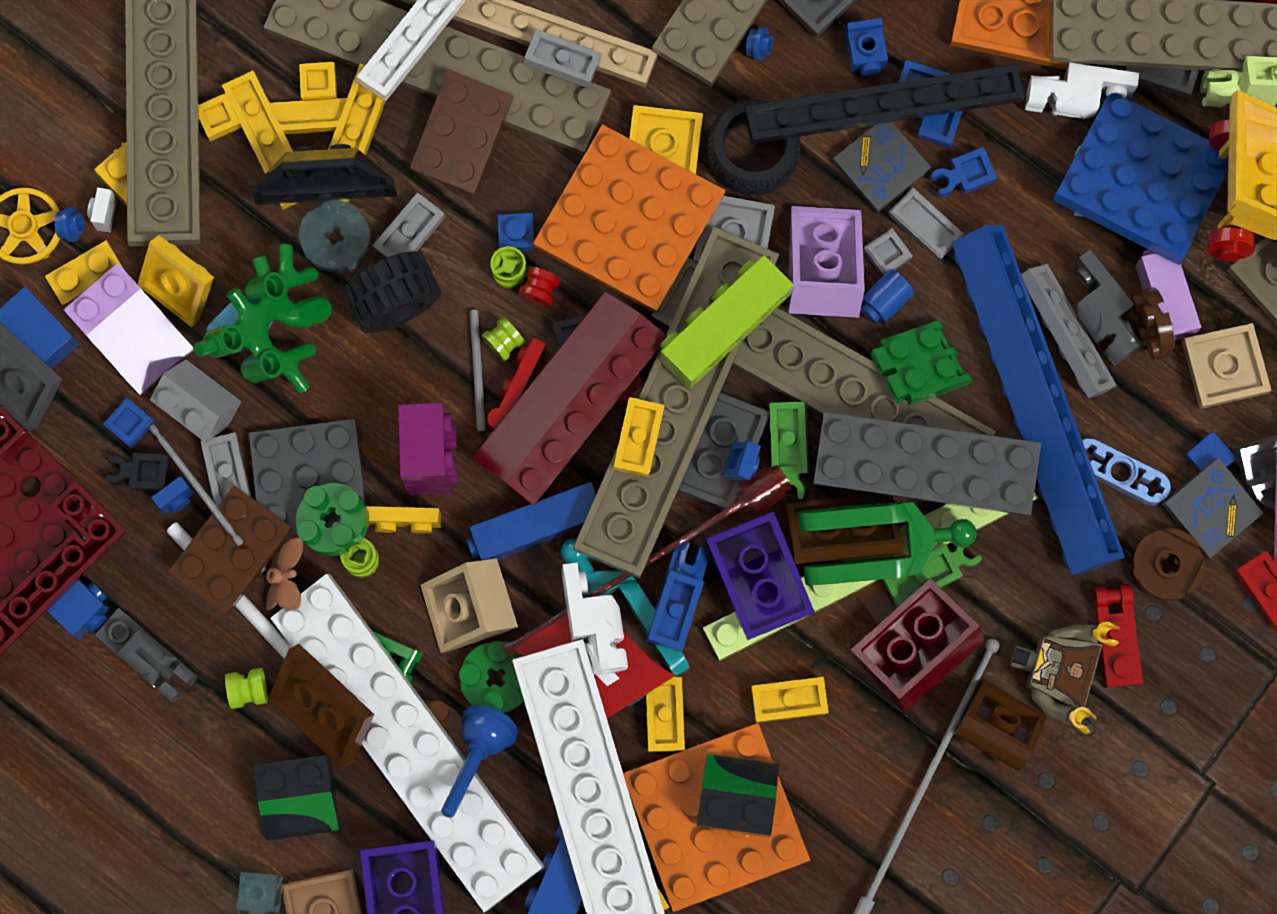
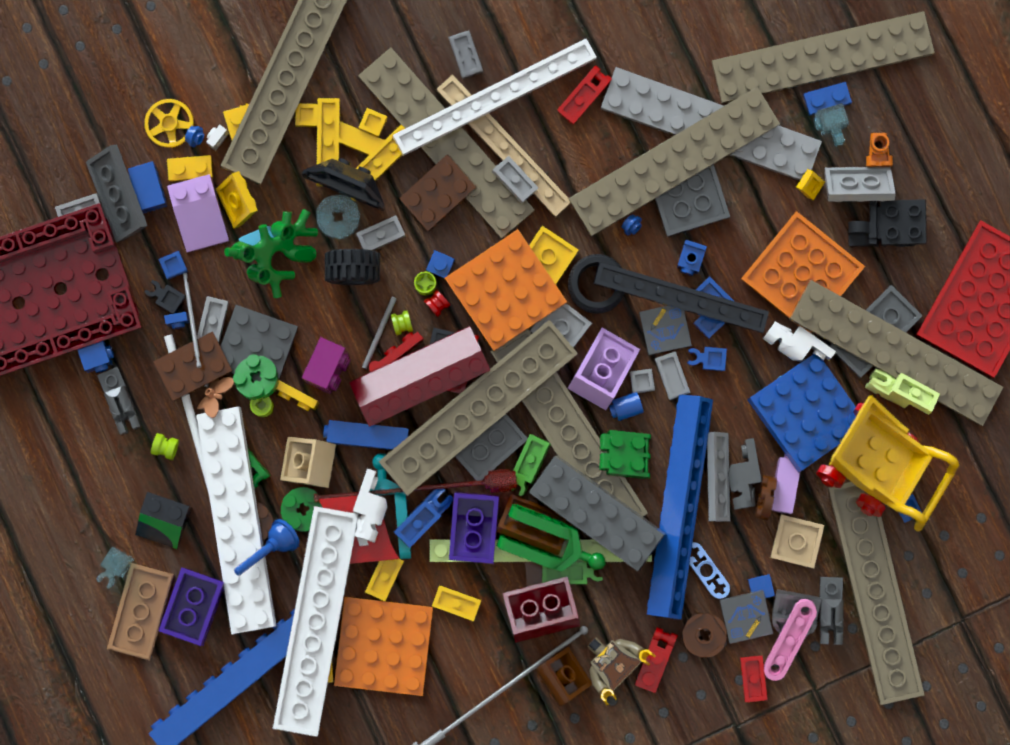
camera: 30 degrees right, 5 degrees up
(195, 400) = (215, 272): light grey brick -> none
(321, 706) = (199, 478): reddish brown plate -> none
(638, 437) = (445, 418): yellow plate -> none
(725, 322) = (526, 378): lime brick -> none
(738, 795) = (400, 641): black slope -> none
(742, 461) = (497, 459): blue plate -> none

